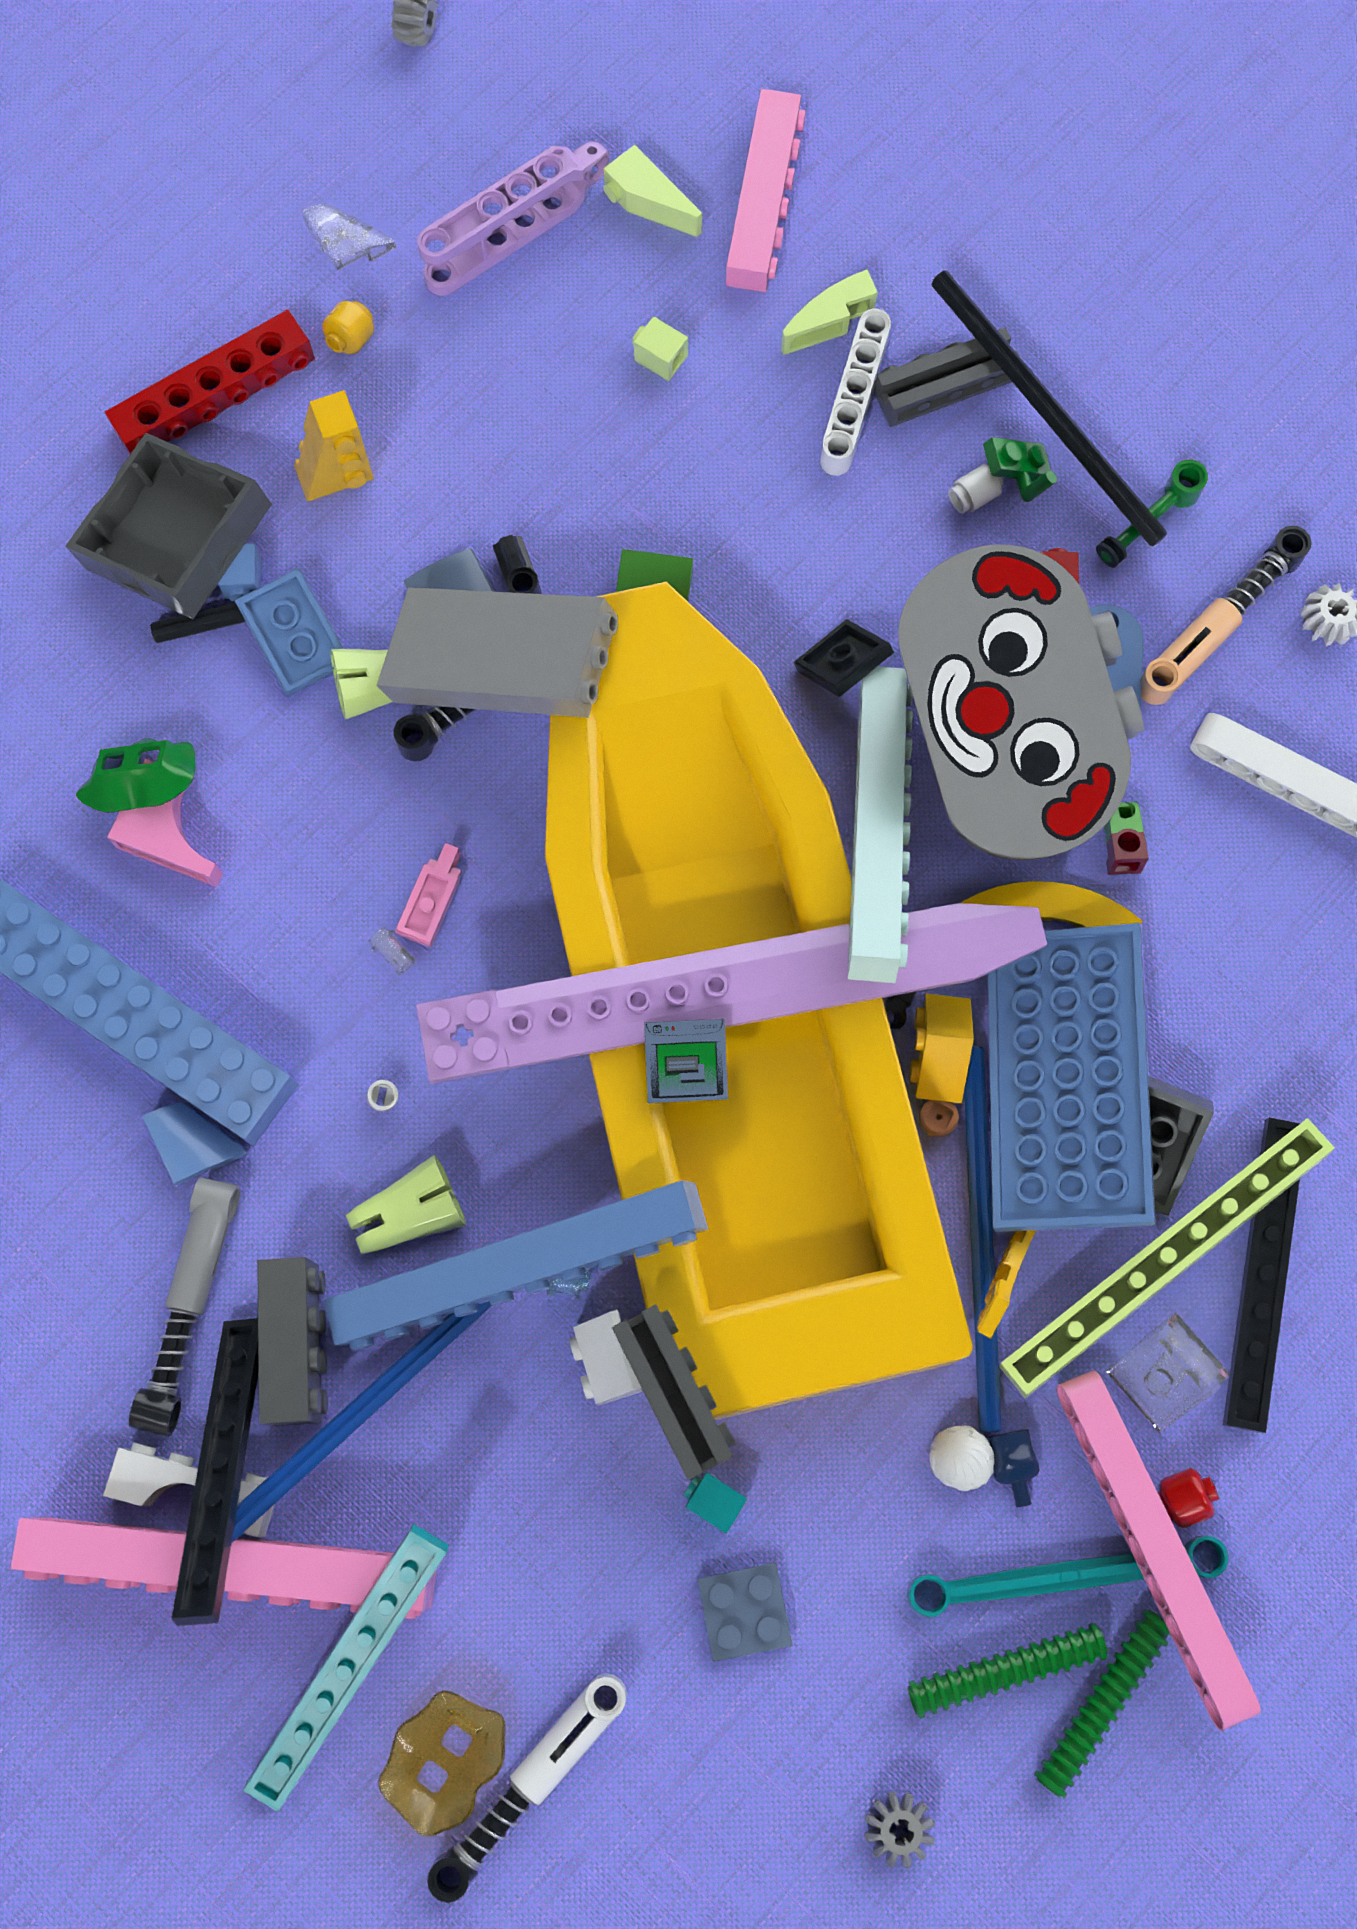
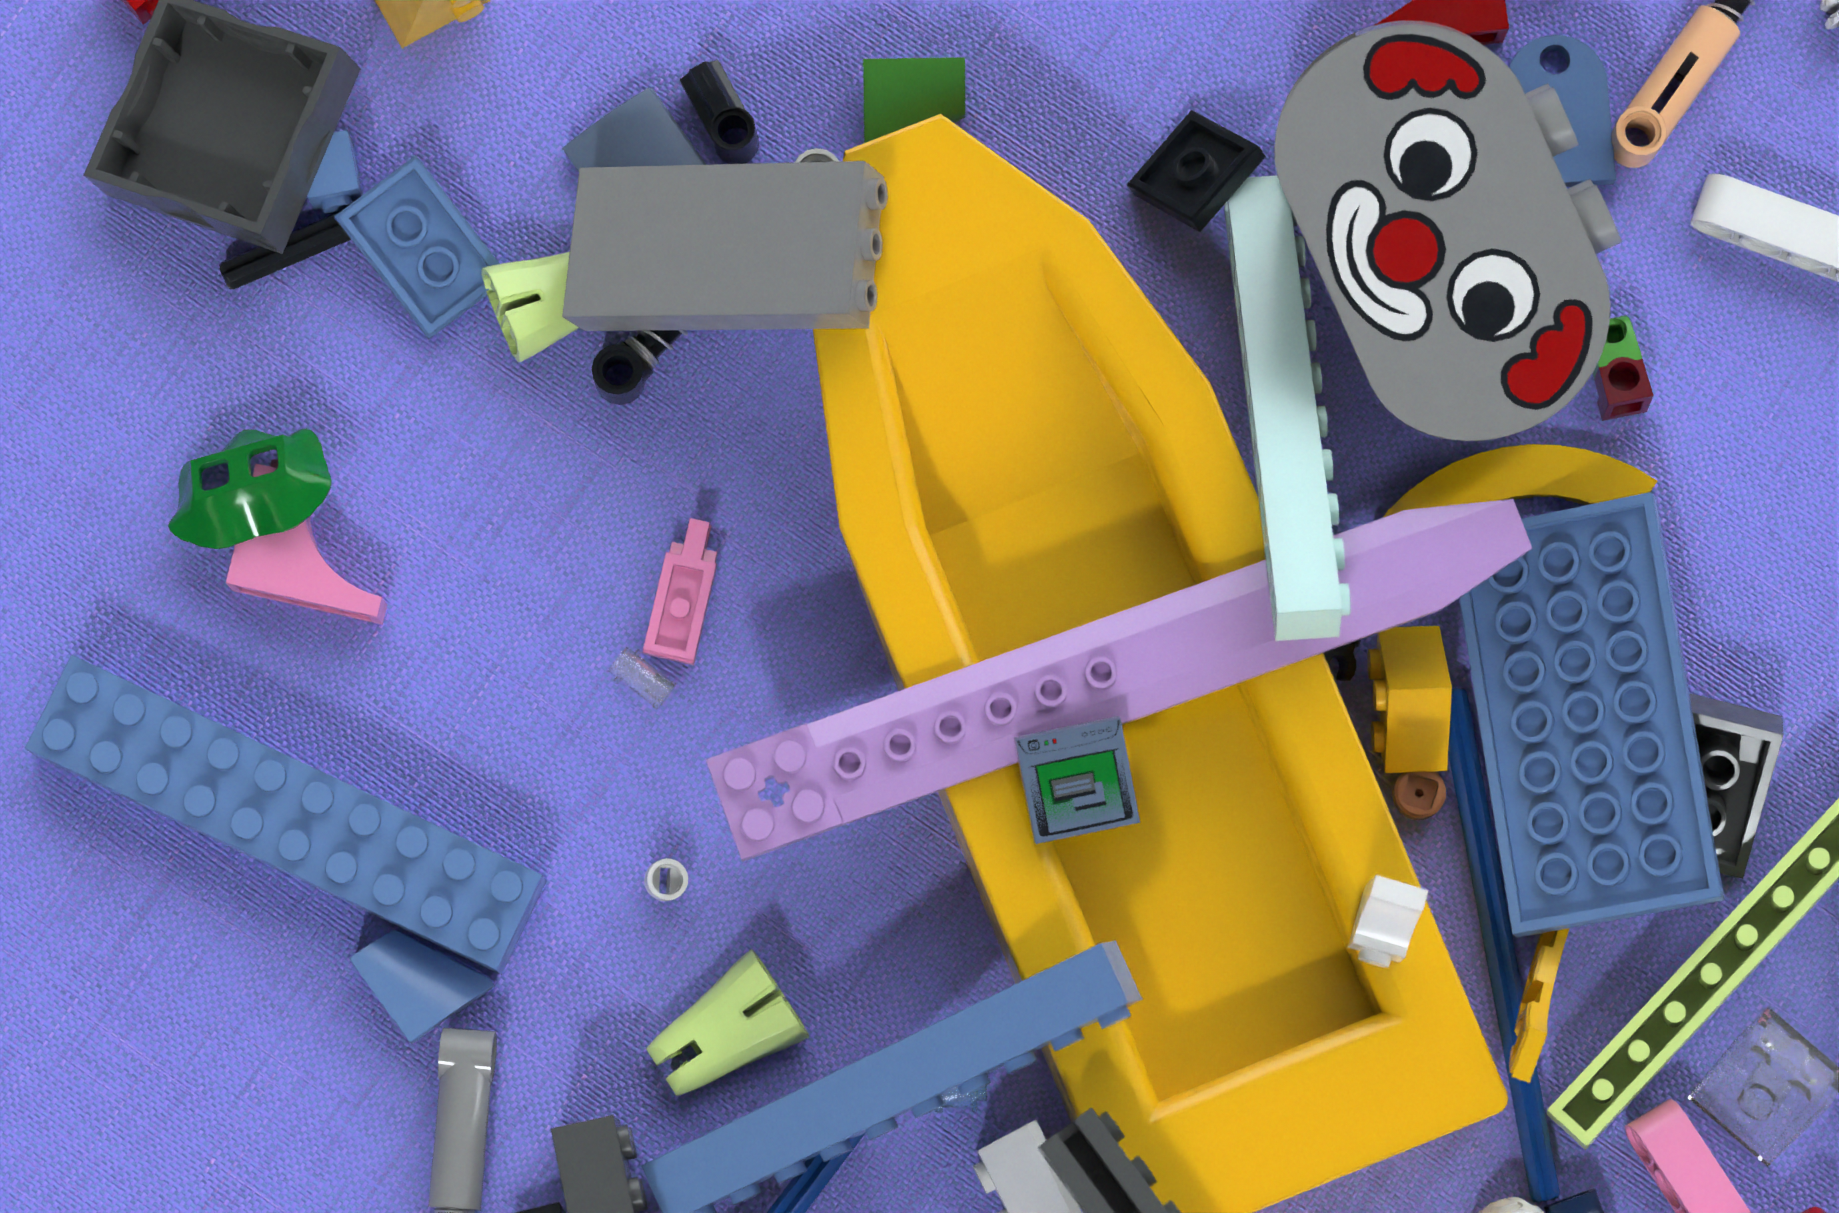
camera: 10 degrees left, 5 degrees up
(900, 1198) = (1386, 920): none -> white arch

